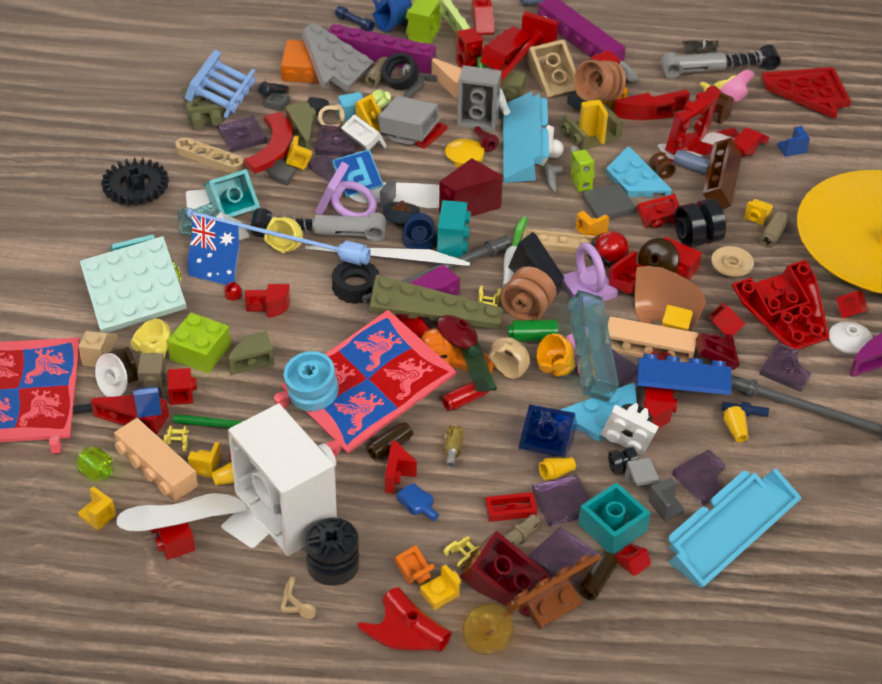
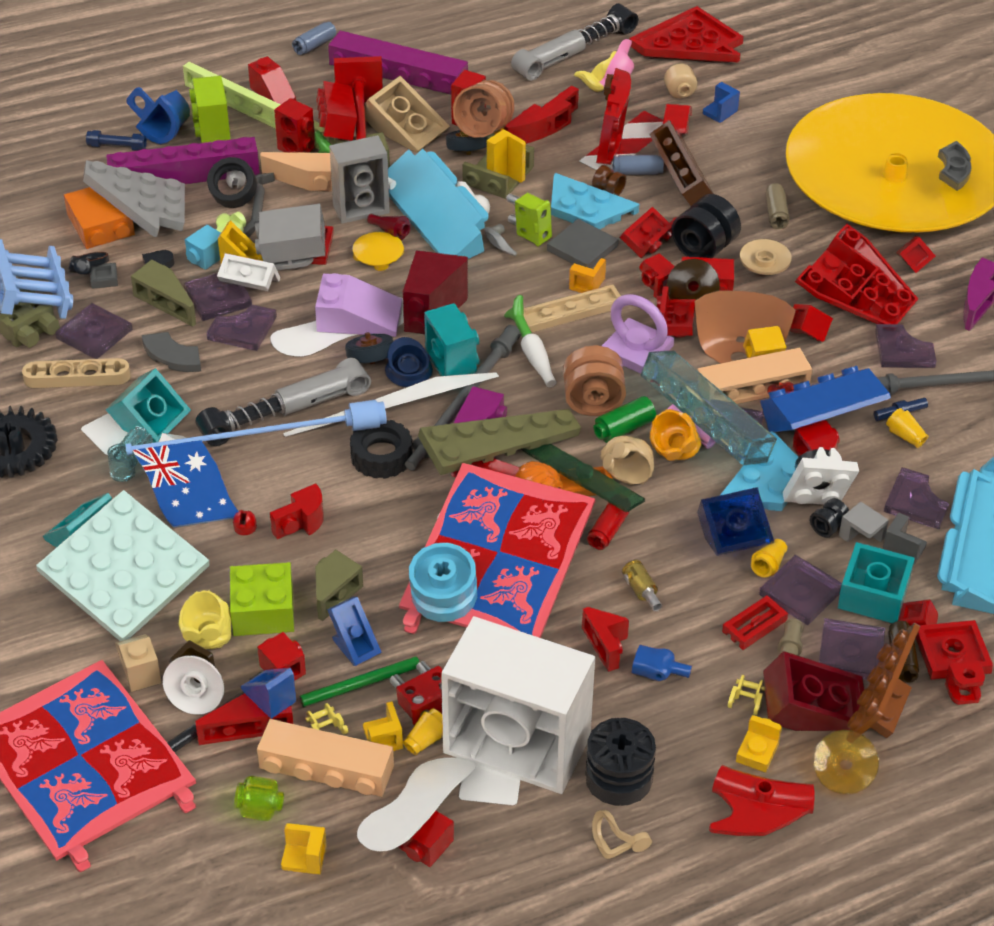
camera: 30 degrees left, 0 degrees up
(151, 370) = (232, 658): dark tan brick -> none
(237, 388) = (353, 631): none -> blue slope
(277, 147) = (154, 320): red tile -> none
(285, 226) = (256, 417): light yellow hair -> none
(297, 155) = (190, 329): yellow panel -> none
(333, 107) = (209, 258): tan piece -> none
(335, 190) = (274, 350): lavender tile -> none
(360, 170) = (281, 322): blue piece -> none
(375, 76) = (200, 194): dark tan piece -> none
(381, 447) = (571, 612): dark brown piece -> none
(388, 193) = (335, 333): dark grey tile -> none
(413, 566) = (714, 735): orange bracket -> none
(414, 181) = (355, 307): none -> lavender slope
(457, 331) = (551, 454): dark red dish -> none
(496, 298) = (534, 407): light yellow piece -> none
(533, 253) = (568, 335): black slope -> none
(611, 247) = (630, 283): red piece -> none
(630, 607) = (961, 669): none -> red plate
(639, 238) = (655, 273): none -> red brick
(694, 45) = (540, 32): clear smoke plate -> none
(718, 348) = (828, 356): dark red wing -> none
(758, 211) = (744, 193): yellow bracket -> none
(775, 115) = (680, 81): none -> tan head
(849, 337) = (937, 290): white dish -> none

